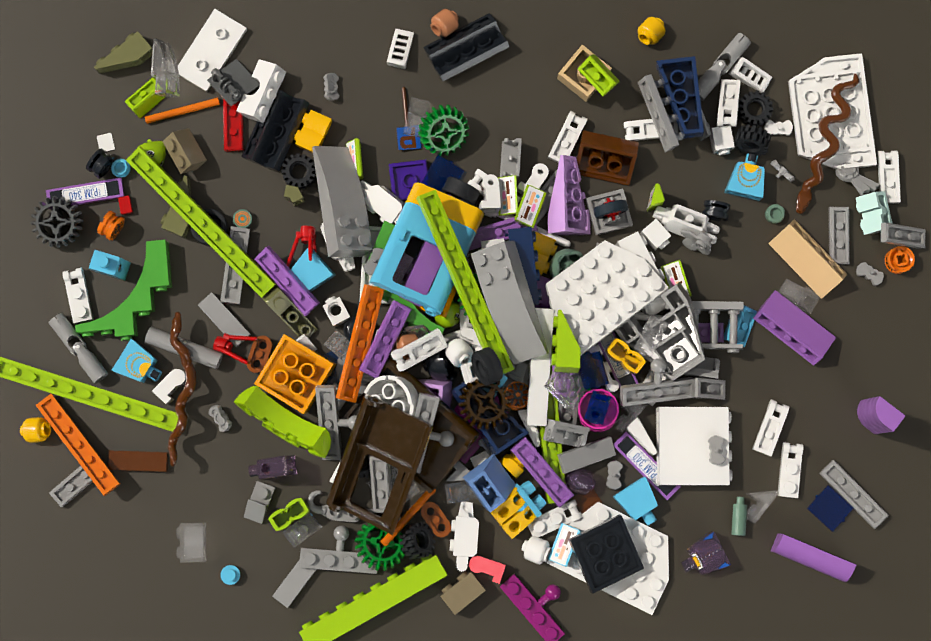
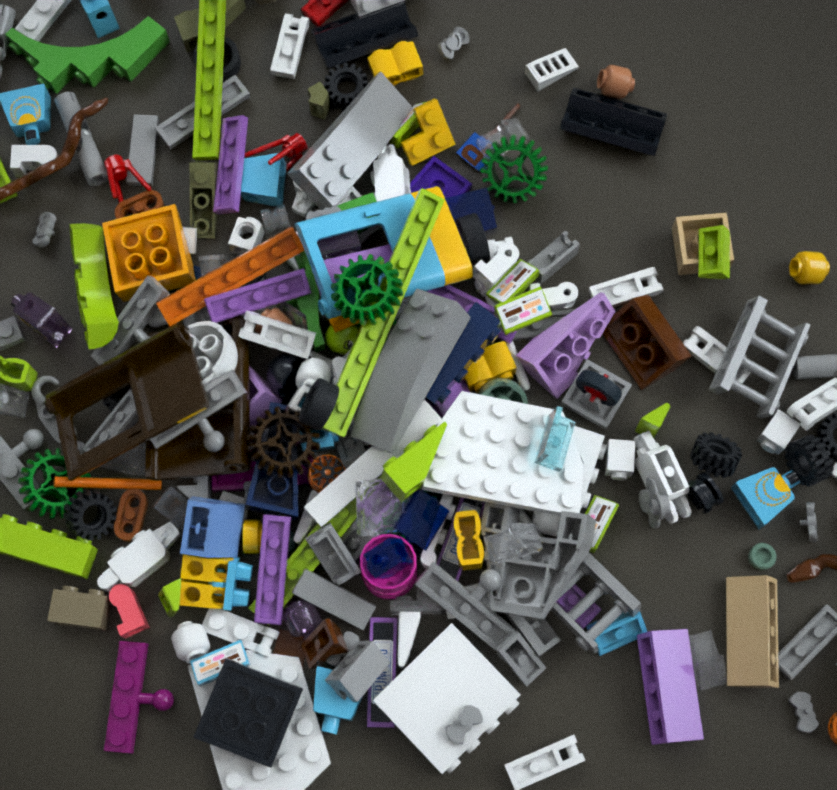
camera: 50 degrees right, 10 degrees down
(242, 179) = (289, 46): none -> white plate
(242, 218) = (254, 81): sand green tile -> none
(341, 286) = (275, 219): none -> clear wheel
(378, 153) = (434, 135): none -> yellow plate
(441, 284) = (372, 271): none -> green gear
(505, 538) = (170, 597): none -> lime slope
(605, 483) = (322, 643): none -> reddish brown slope
(619, 261) = (555, 441): none -> clear light blue panel
(637, 478) = (357, 670): none -> light grey hinge
(682, 90) = (785, 341): dark blue wedge -> none
(711, 184) = (716, 455): none -> black tyre

